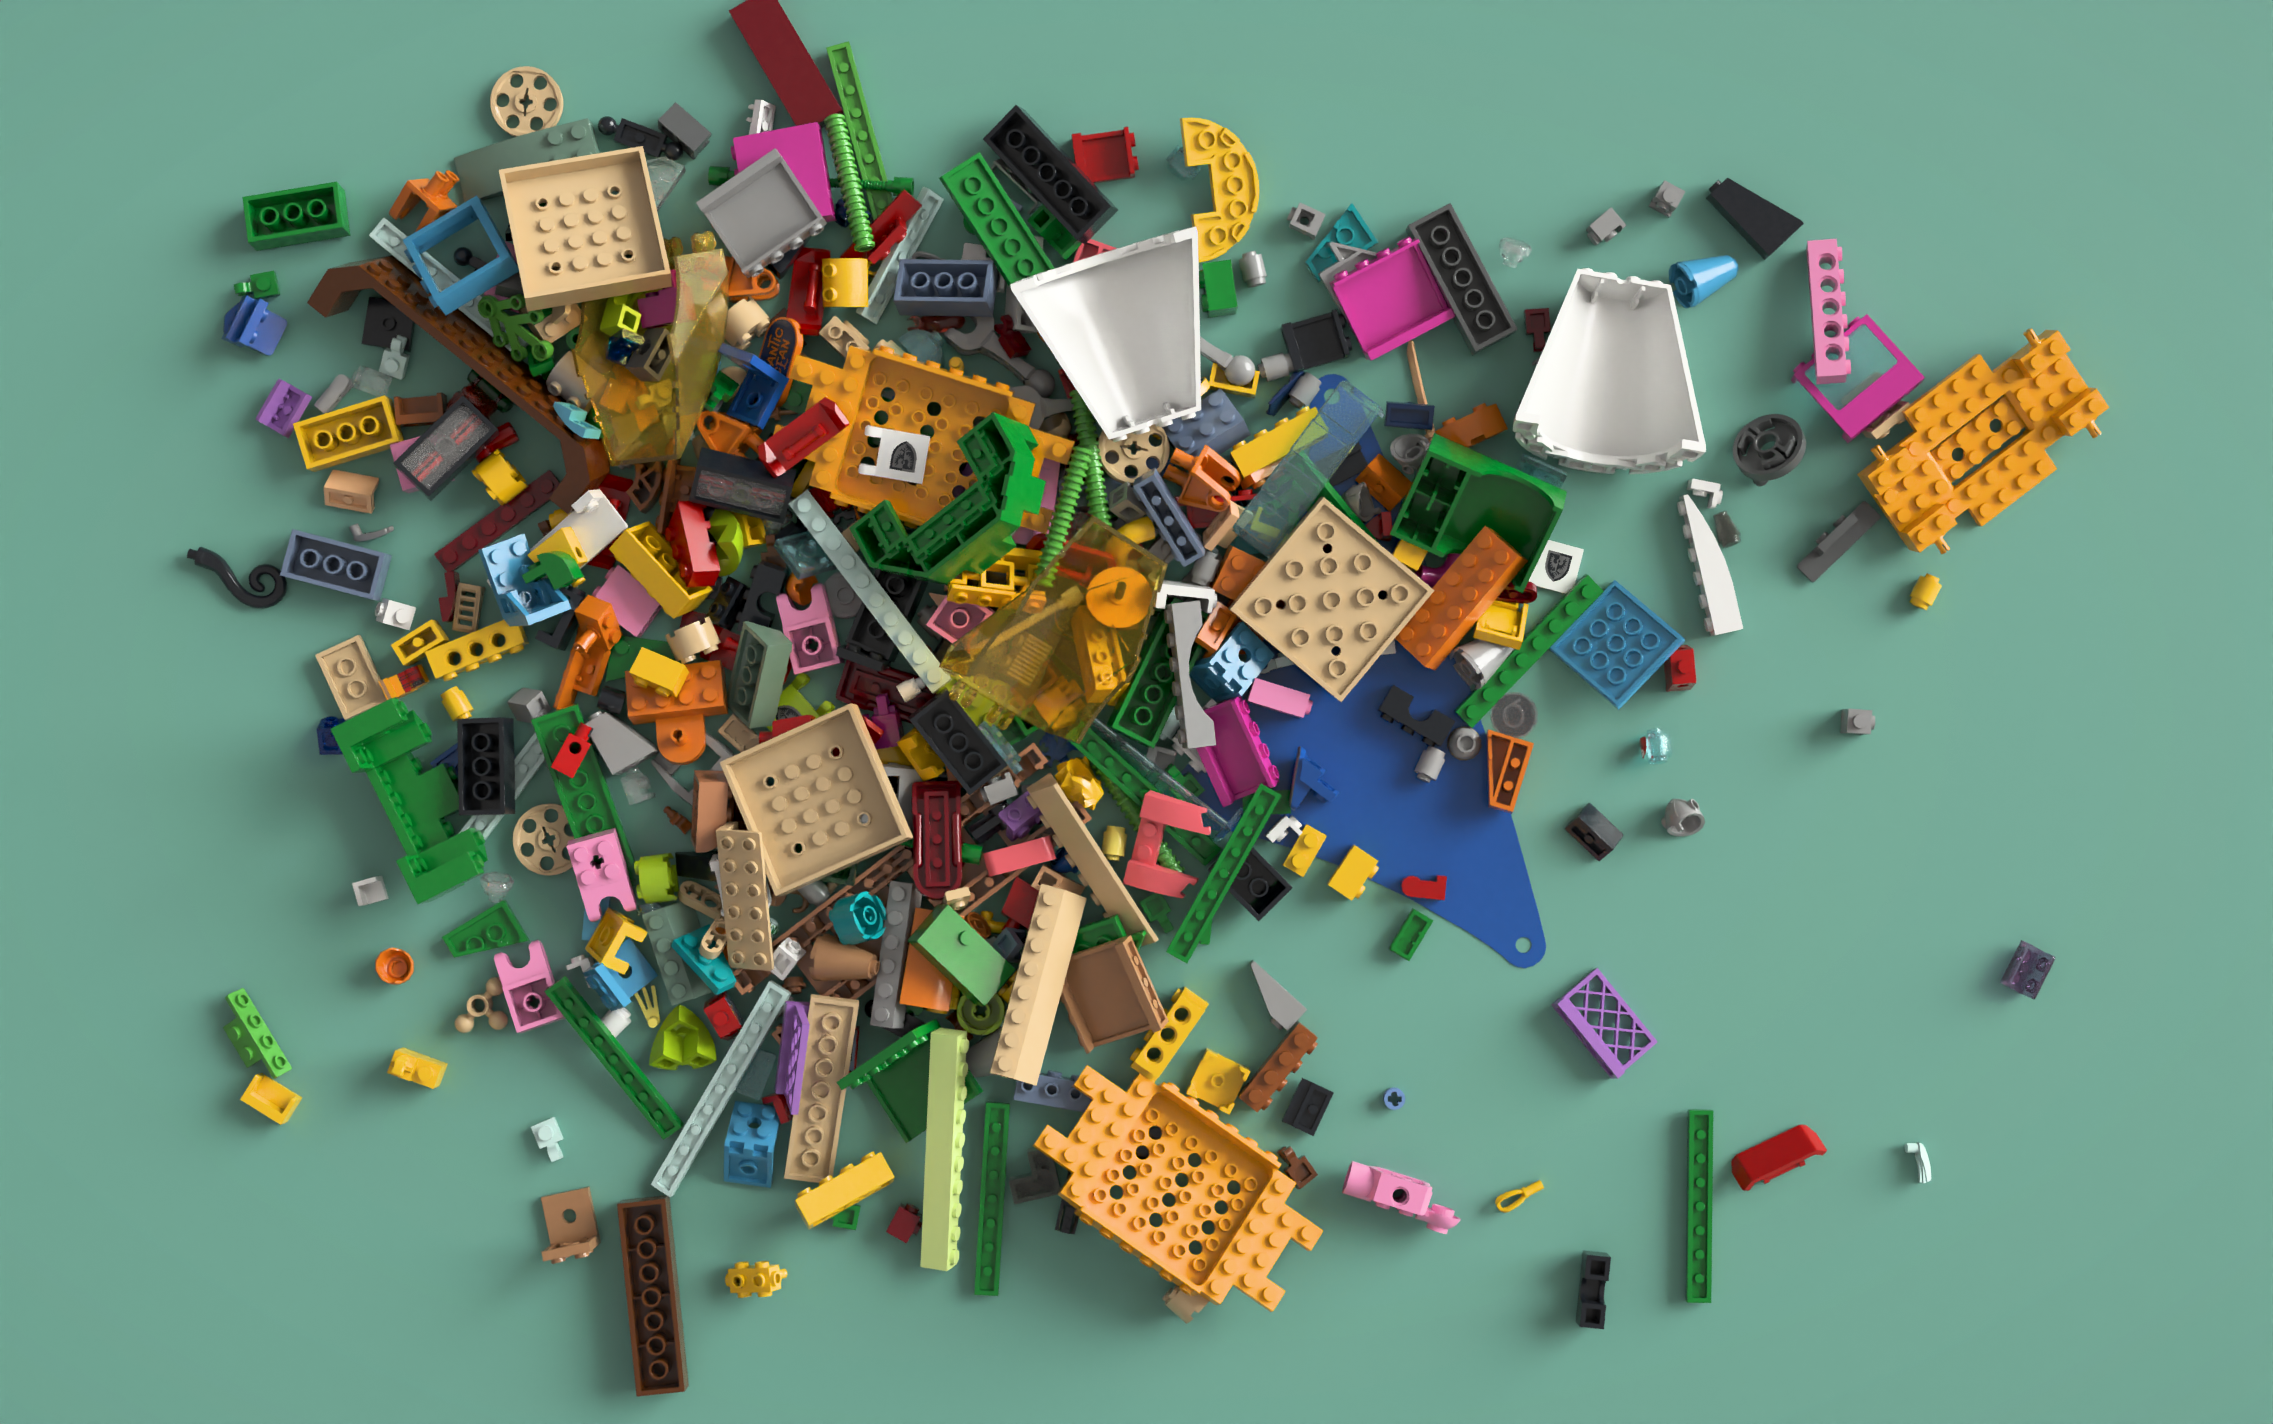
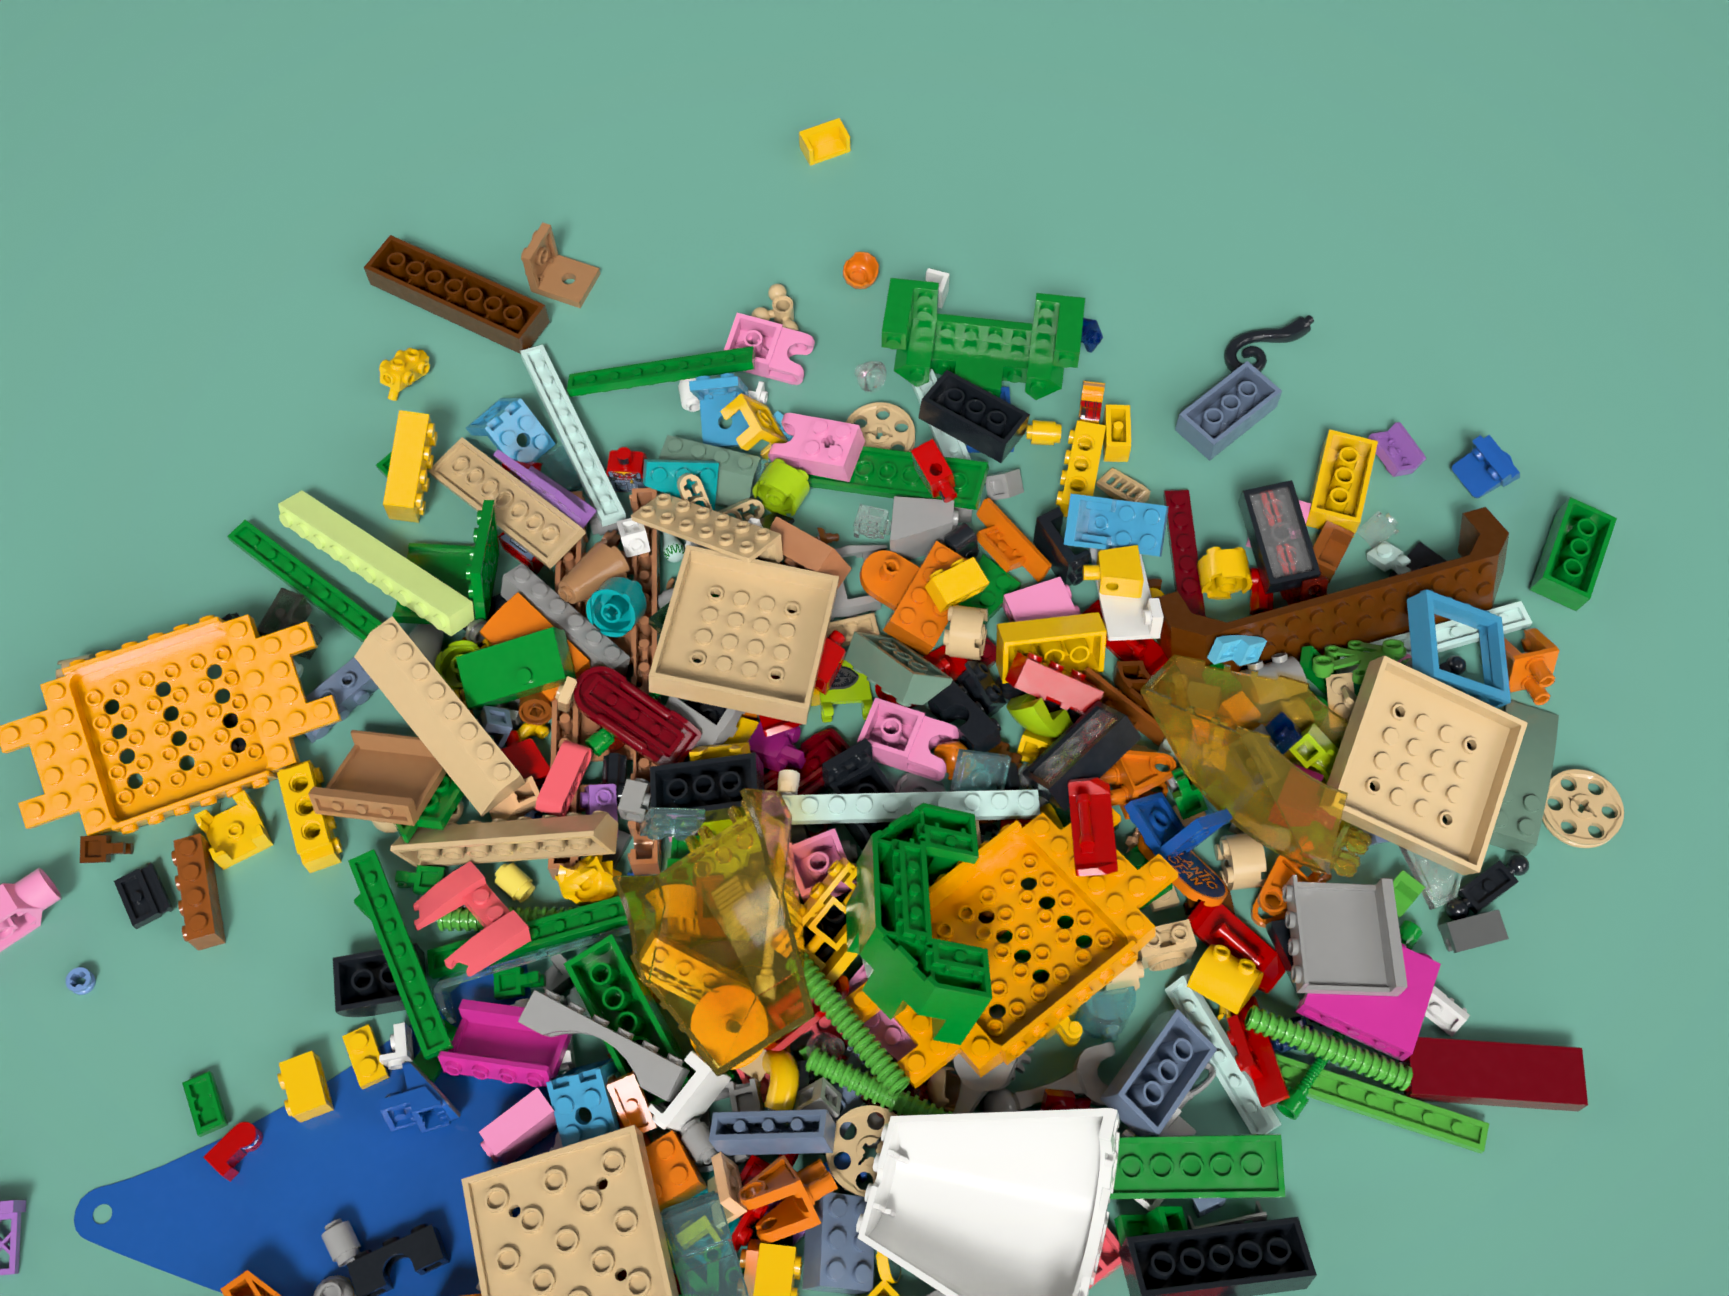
camera: 130 degrees right, 25 degrees down
(252, 1036) = (881, 157): bright green bracket -> none
(262, 285) = (1520, 497): green plate -> none
(333, 395) = (1384, 495): light grey bar -> none
(350, 491) = (1288, 459): light nougat panel -> none
(351, 677) = (1124, 372): tan plate -> none
(359, 536) = (1238, 453): light grey piece -> none
(394, 613) = (1155, 432): white bracket -> none
(417, 1068) = (768, 241): yellow hinge -> none
(447, 604) = (1137, 472): dark red slope -> none
(486, 931) = (838, 351): green wing -> none
(548, 1134) = (641, 301): light aqua plate -> none
(559, 568) = (1110, 554): green brick -> none
(597, 625) = (1034, 567): orange brick -> none
(652, 1013) = (682, 427): light yellow piece -> none
(682, 1042) = (634, 429): lime brick -> none
(686, 197) = (1406, 891): none -> bright green panel
(899, 456) = (1015, 913): white flag -> none
(905, 1222) = (348, 503): dark red brick -> none
(937, 323) = (1127, 1043): clear red arm -> none
(946, 1019) = (473, 631): none -> flat silver plate
(1279, 1001) = (250, 933): light grey slope -> none

